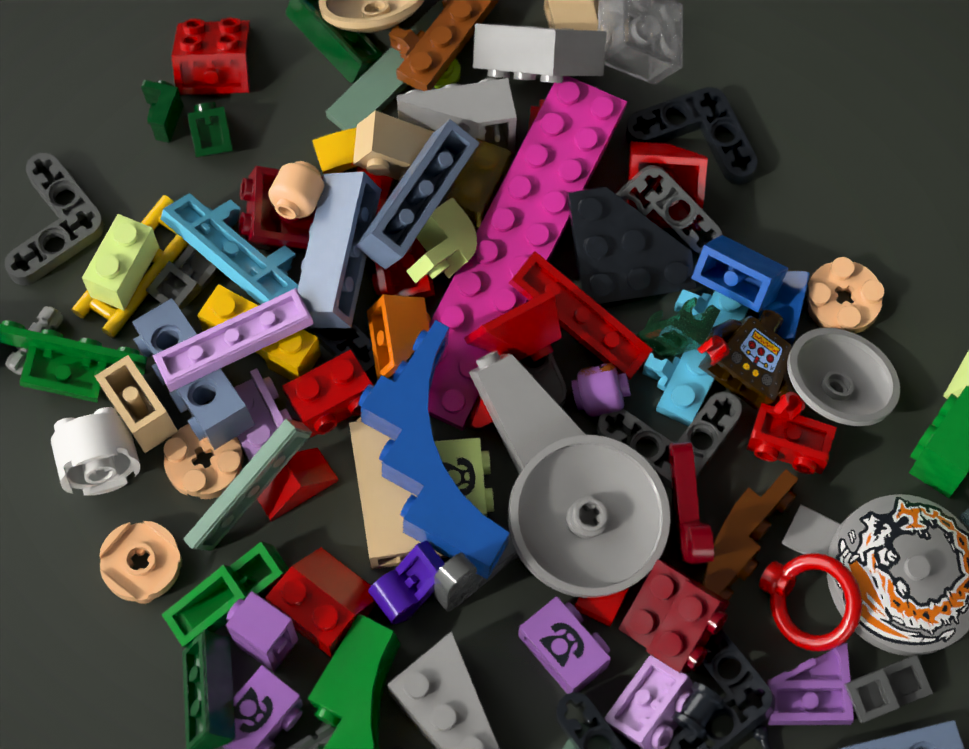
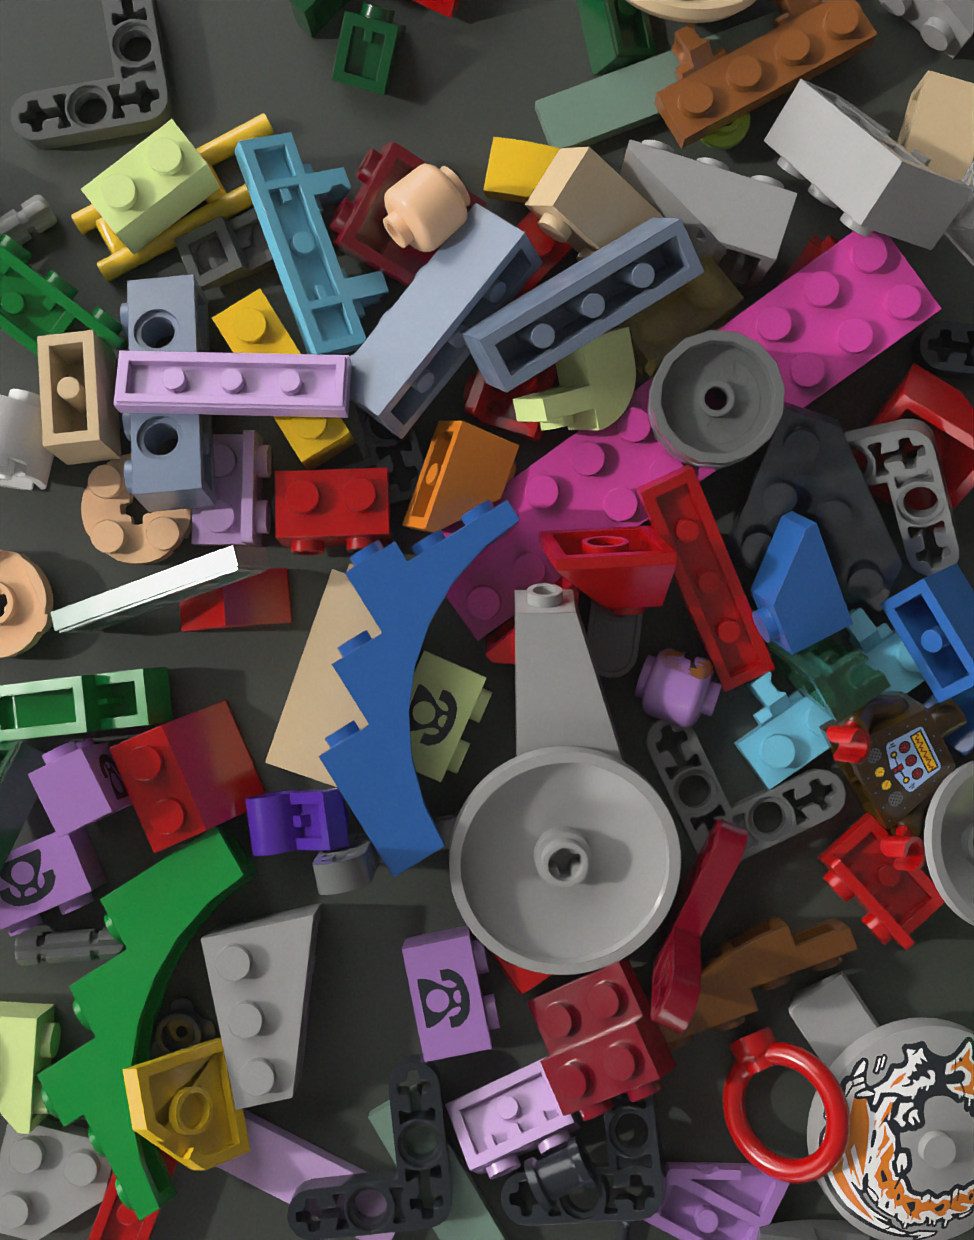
camera: 35 degrees right, 20 degrees up
(525, 206) = (736, 372): none -> dark grey wheel
(636, 289) = (797, 588): none -> blue slope

